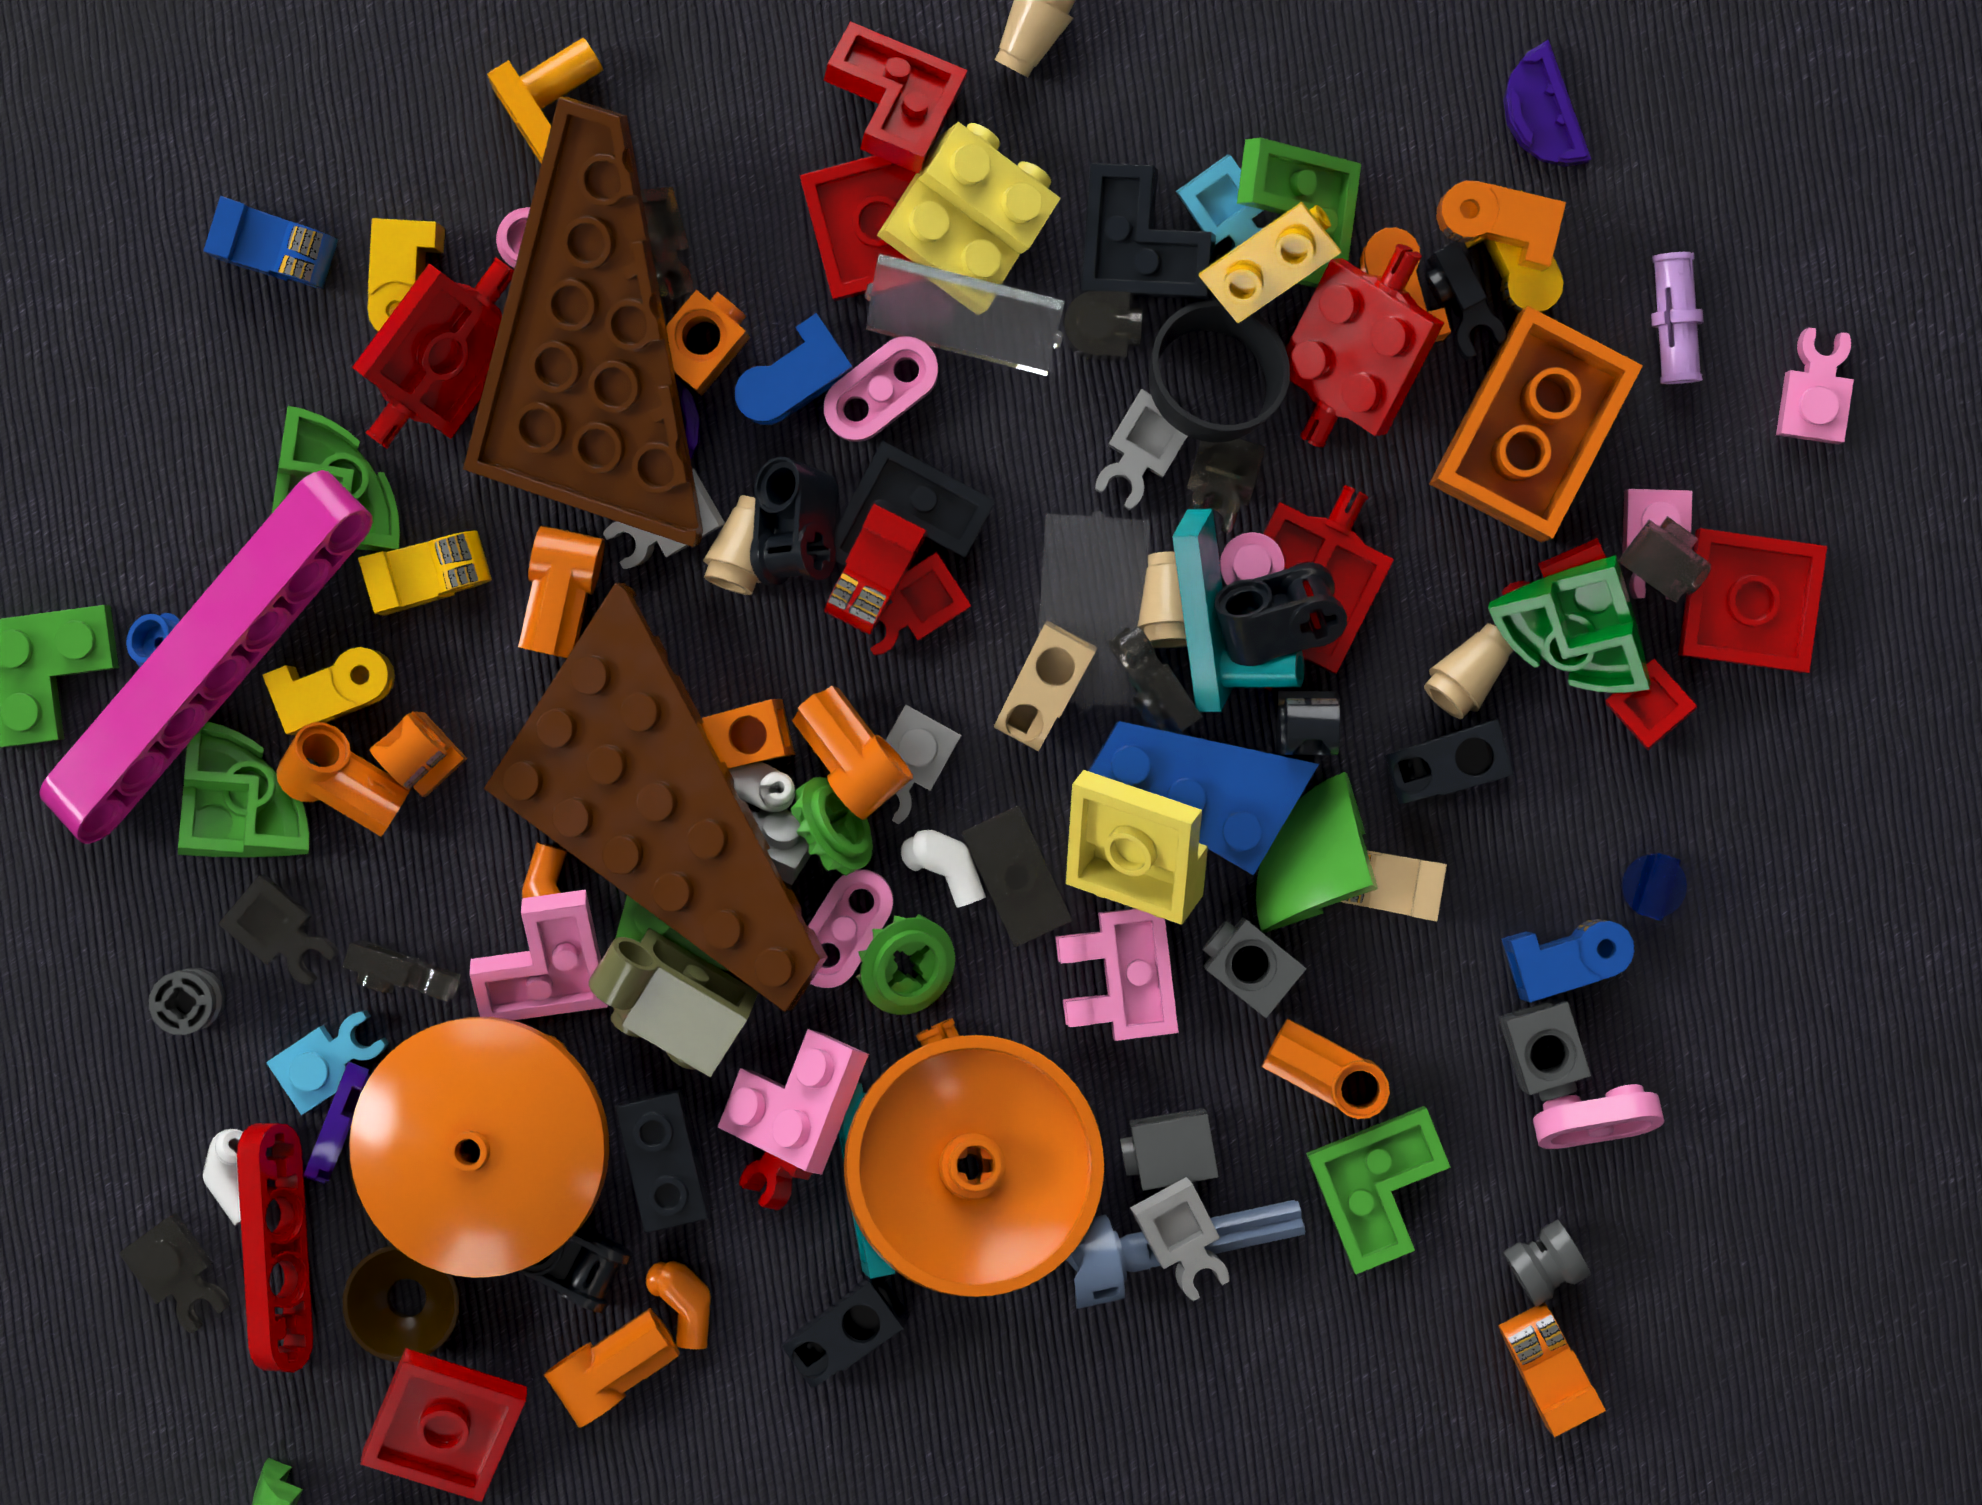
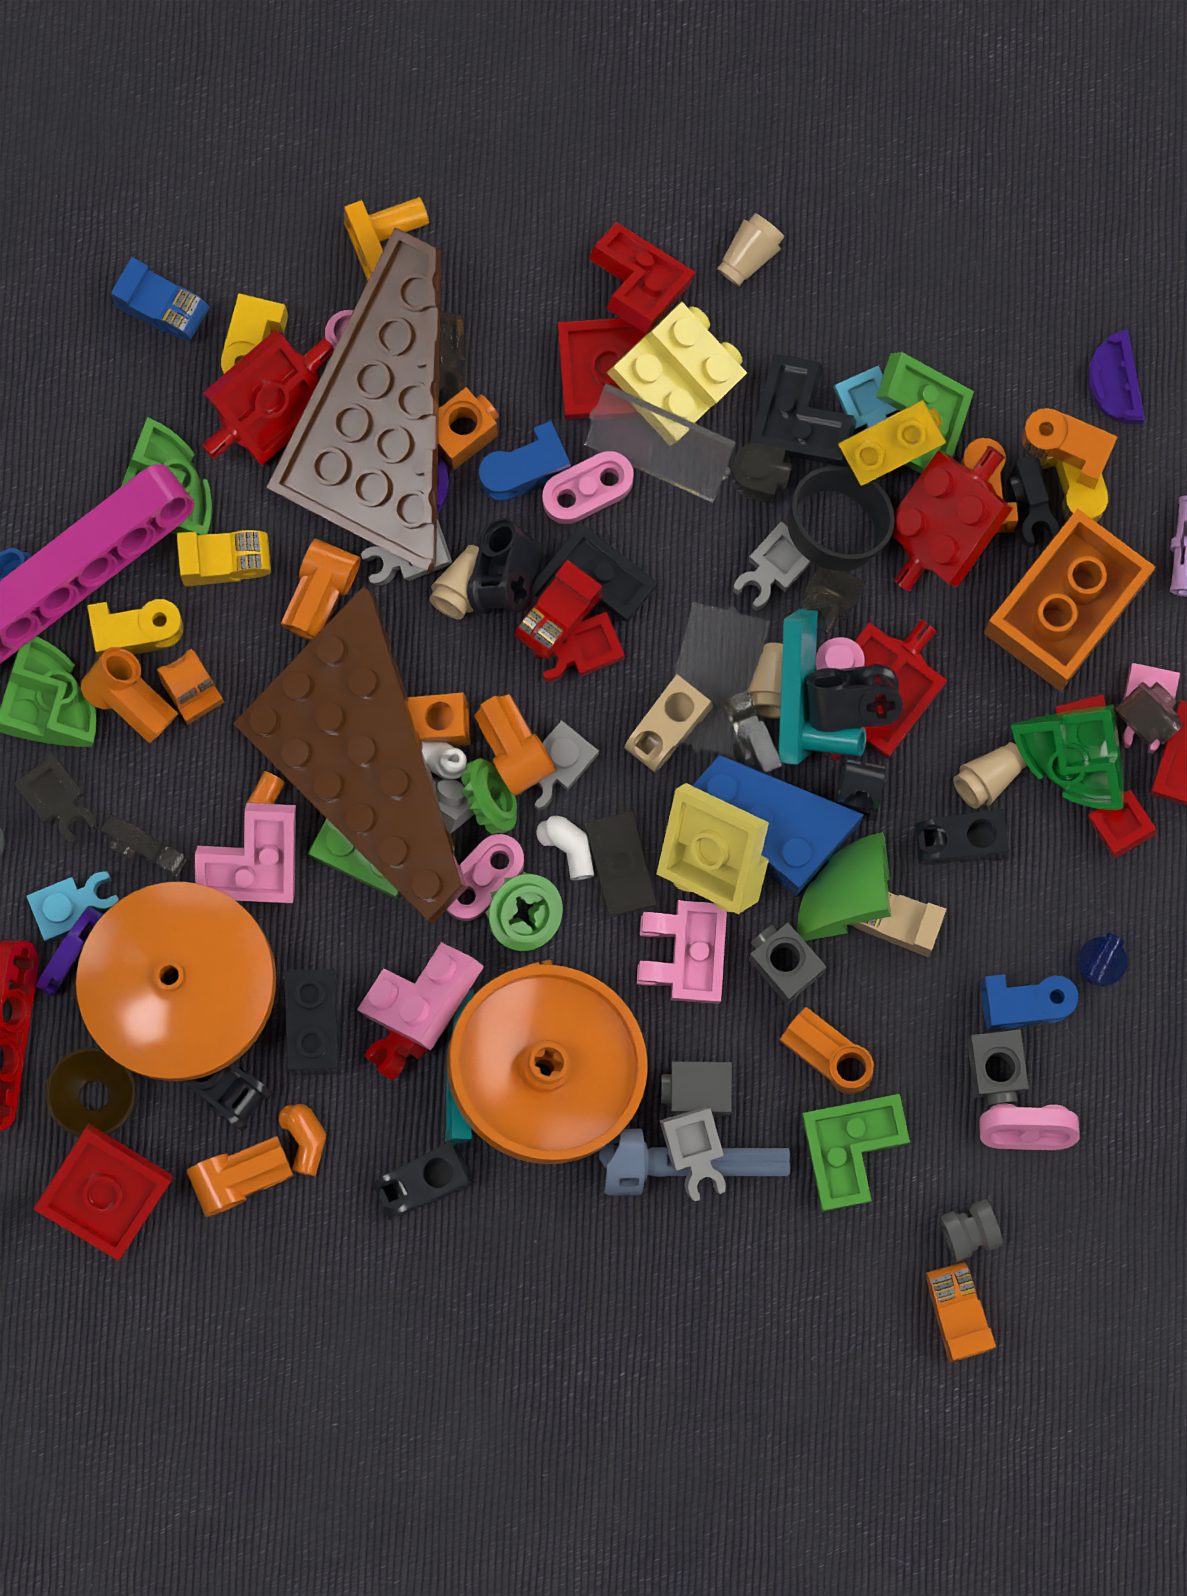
camera: 10 degrees right, 10 degrees down
(672, 999) = (342, 902): olive hinge -> none

